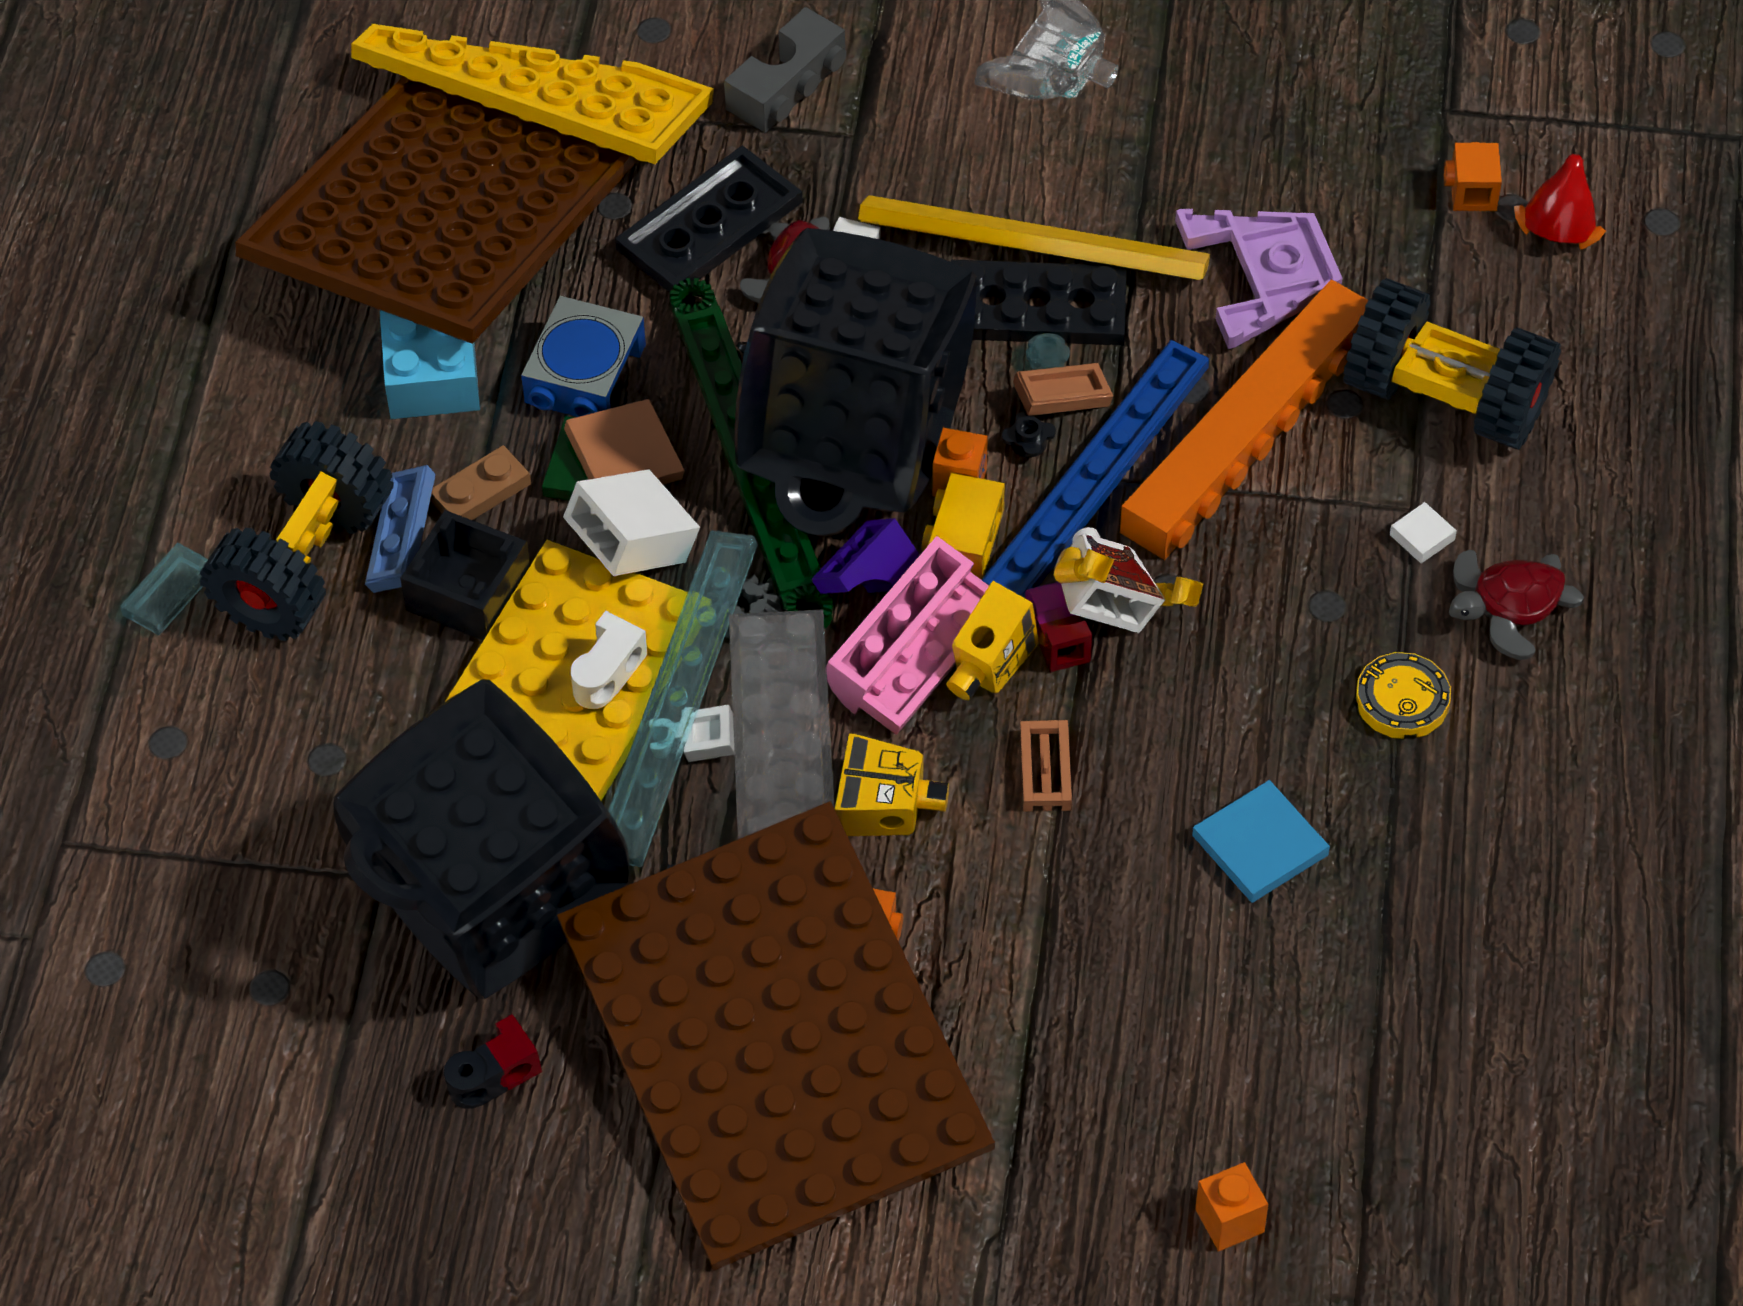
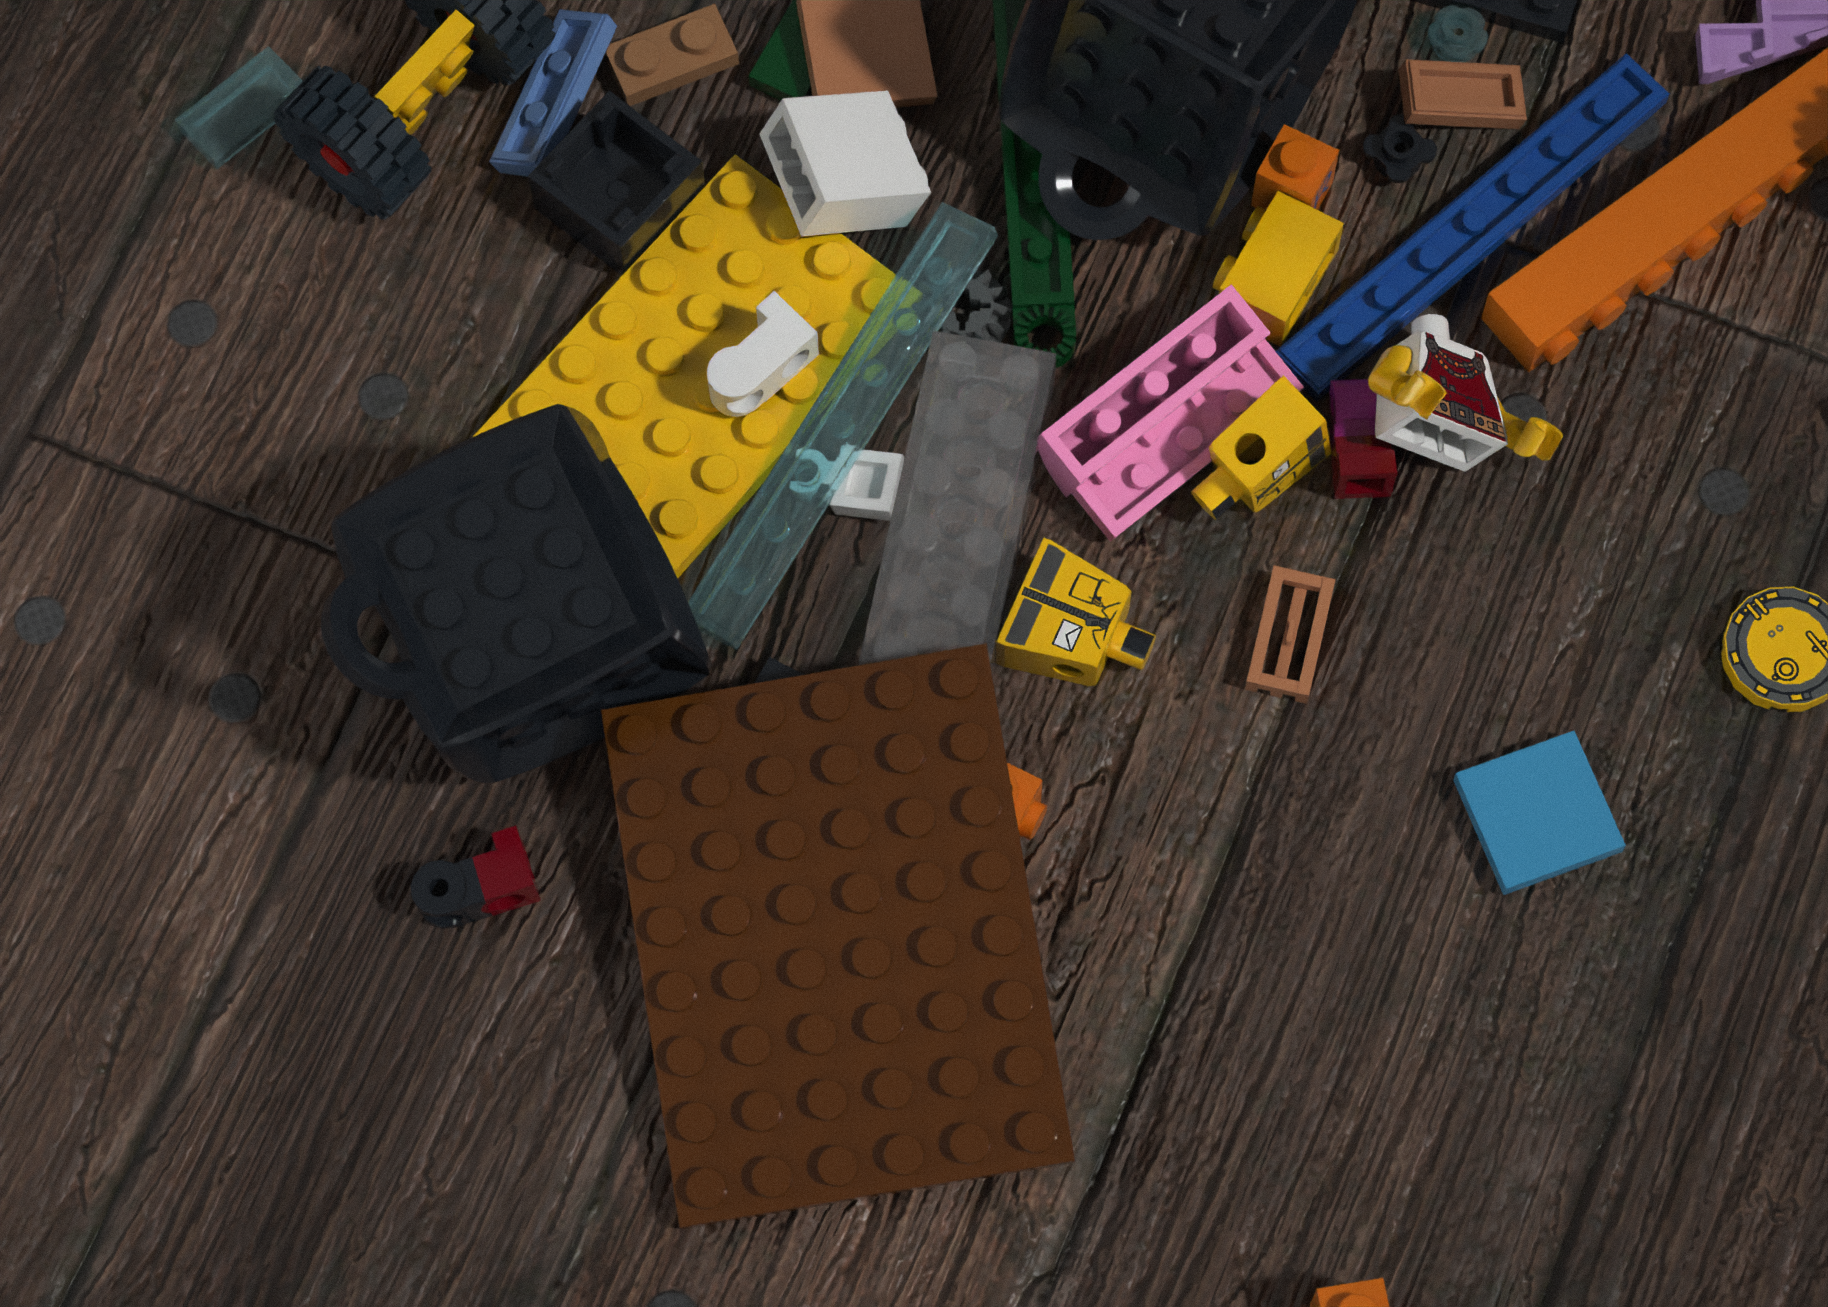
camera: 15 degrees right, 15 degrees up
(871, 557) = (1143, 288): dark purple arch -> none

